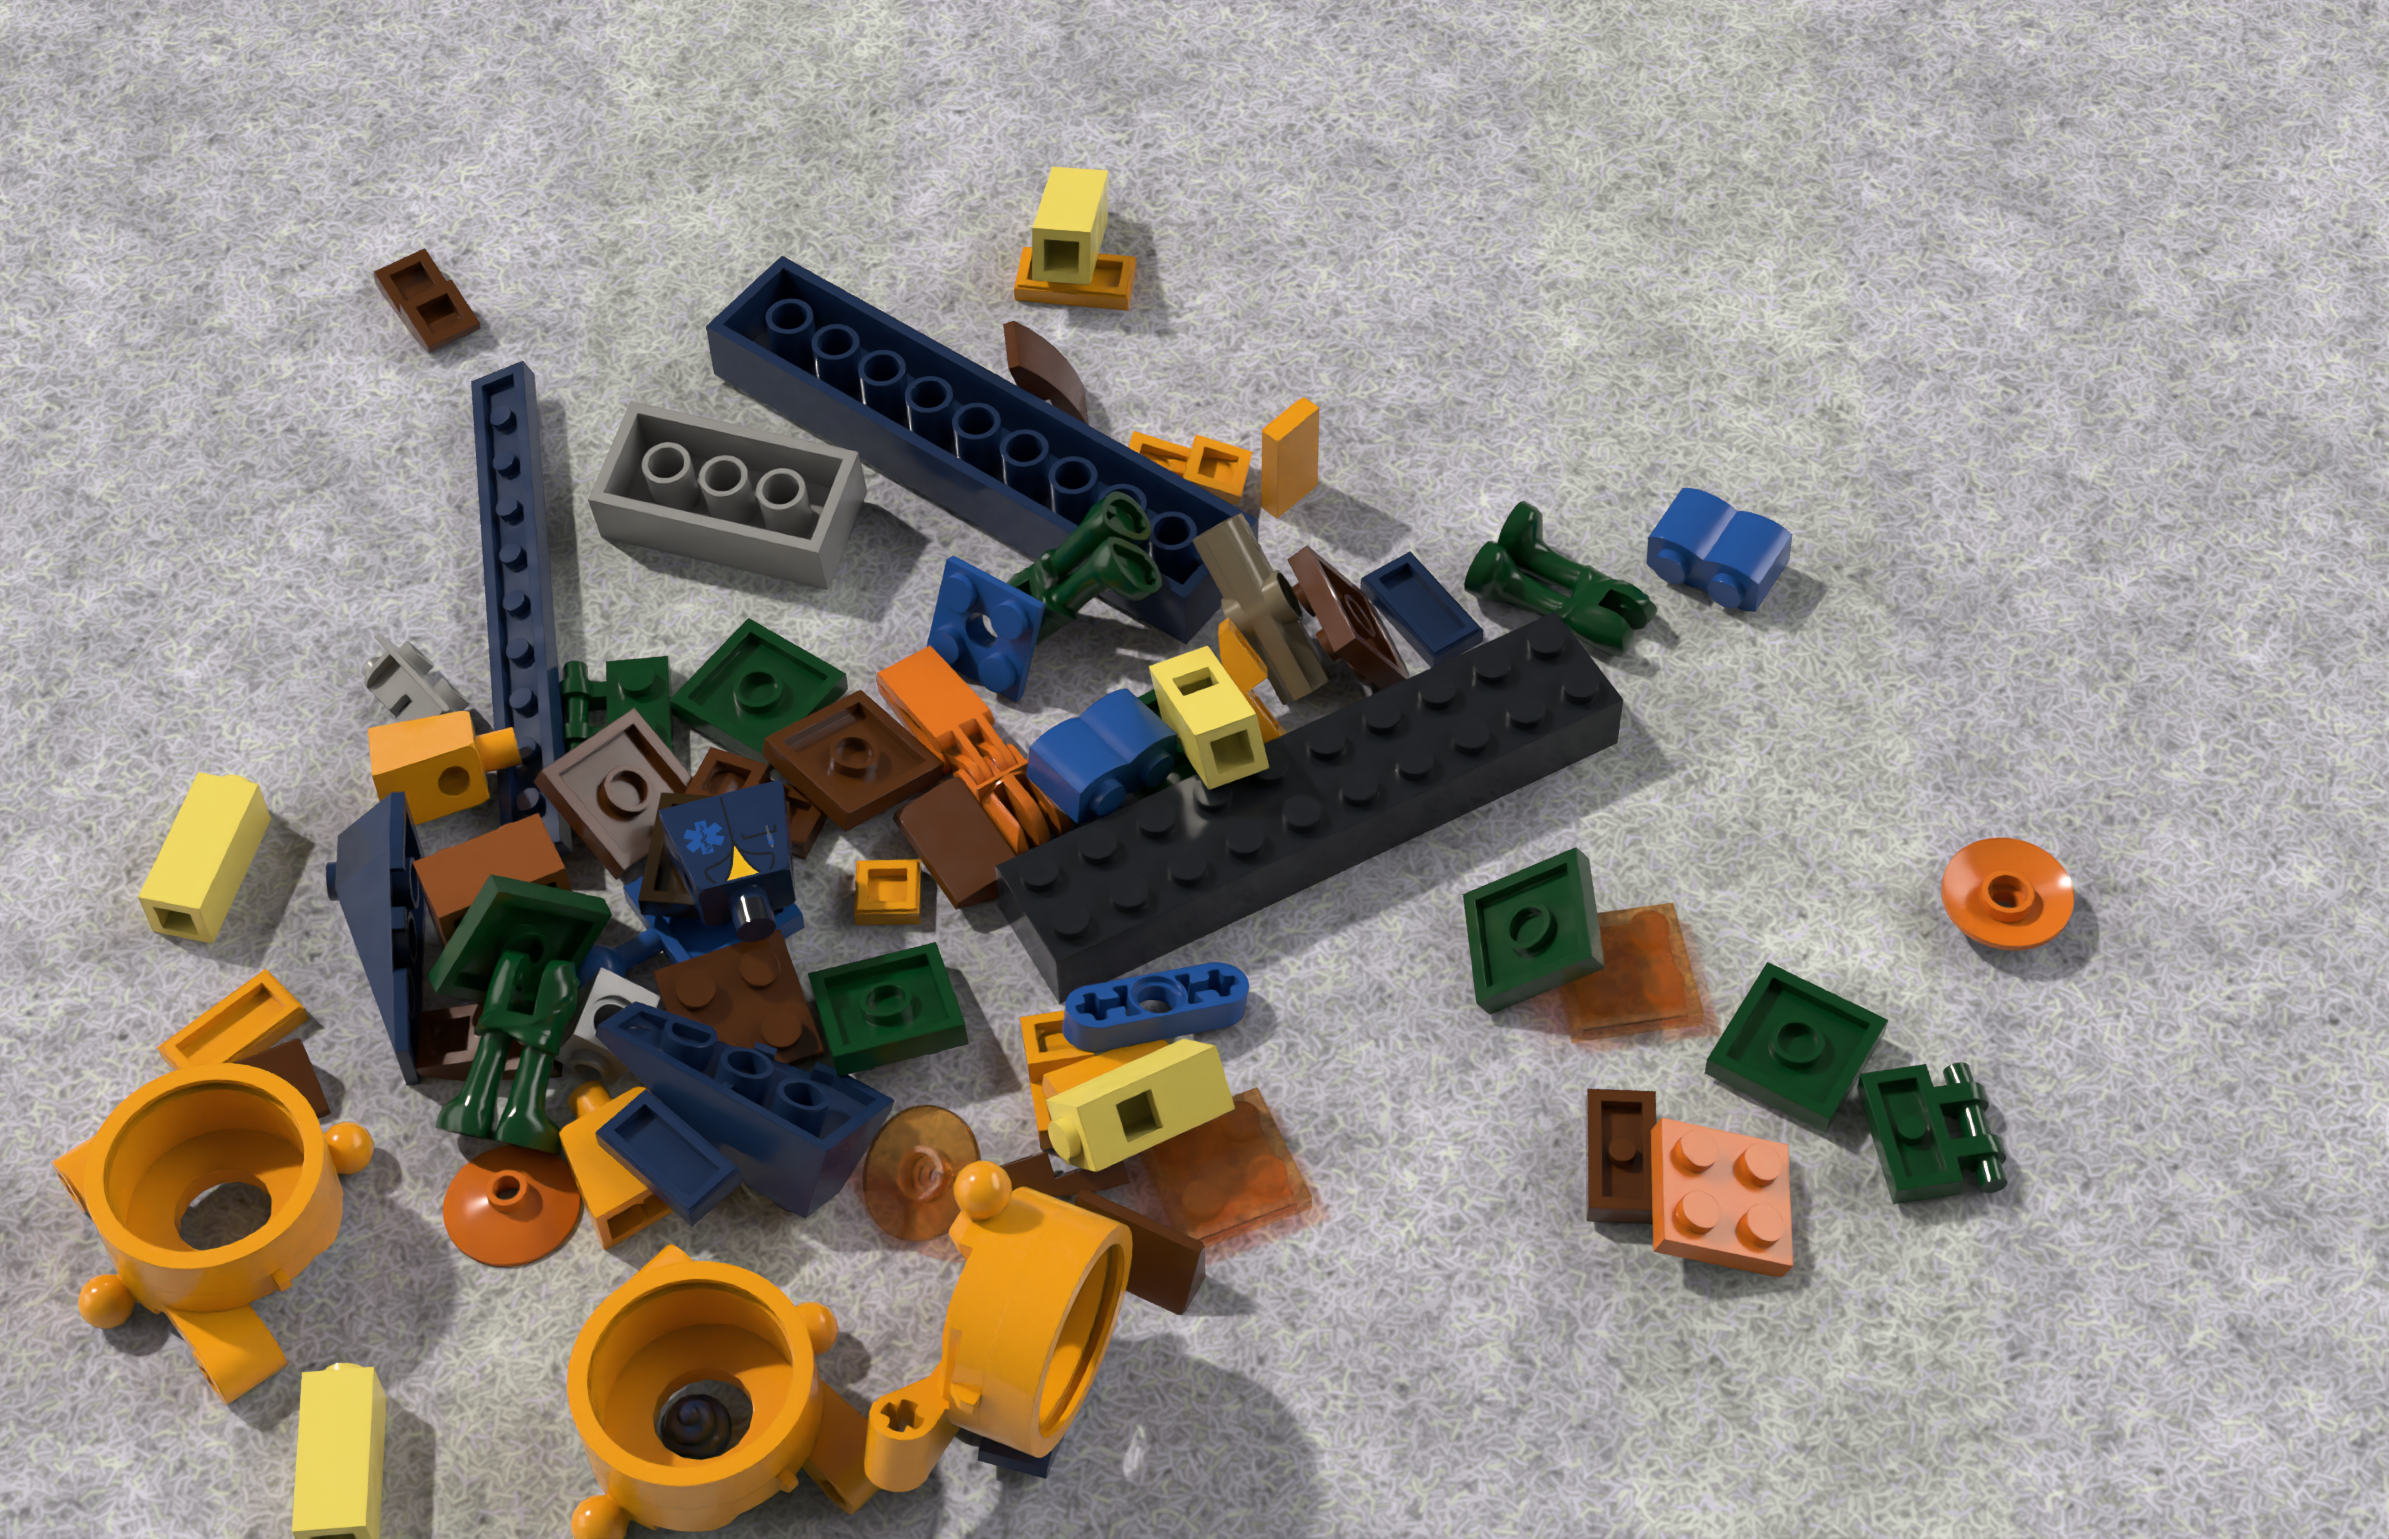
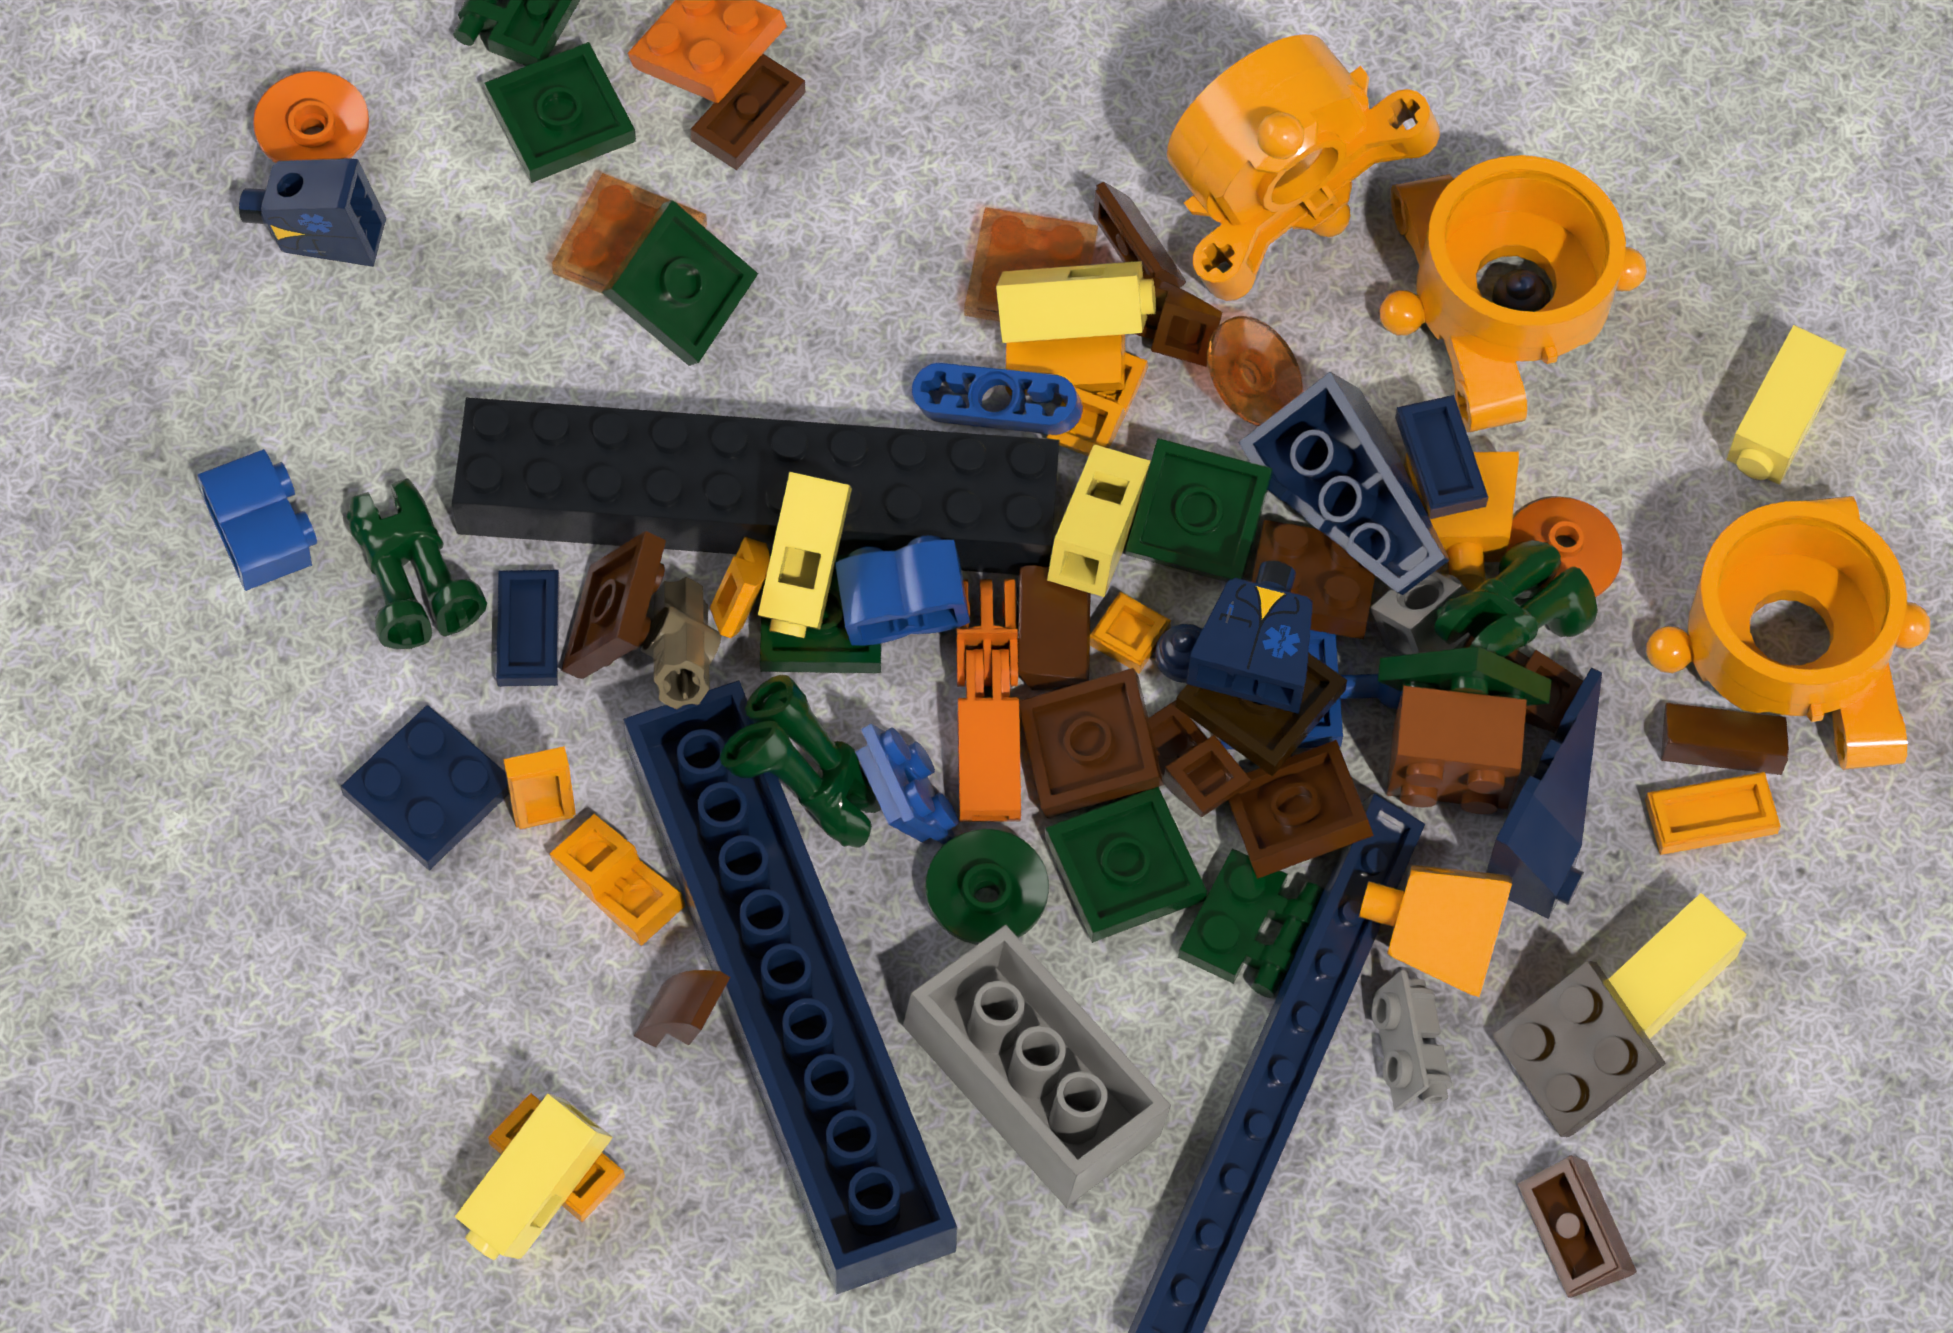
camera: 150 degrees left, 10 degrees up
(194, 645) = (1576, 1226): none -> reddish brown slope
(256, 742) = (1578, 1049): none -> plate
(823, 893) = (1174, 651): none -> dark blue plate
(864, 590) = (986, 861): none -> dark green dish
(974, 935) = (1098, 521): none -> light yellow brick
(1395, 455) = (427, 787): none -> dark blue plate
(1911, 804) = (319, 210): none -> dark blue torso

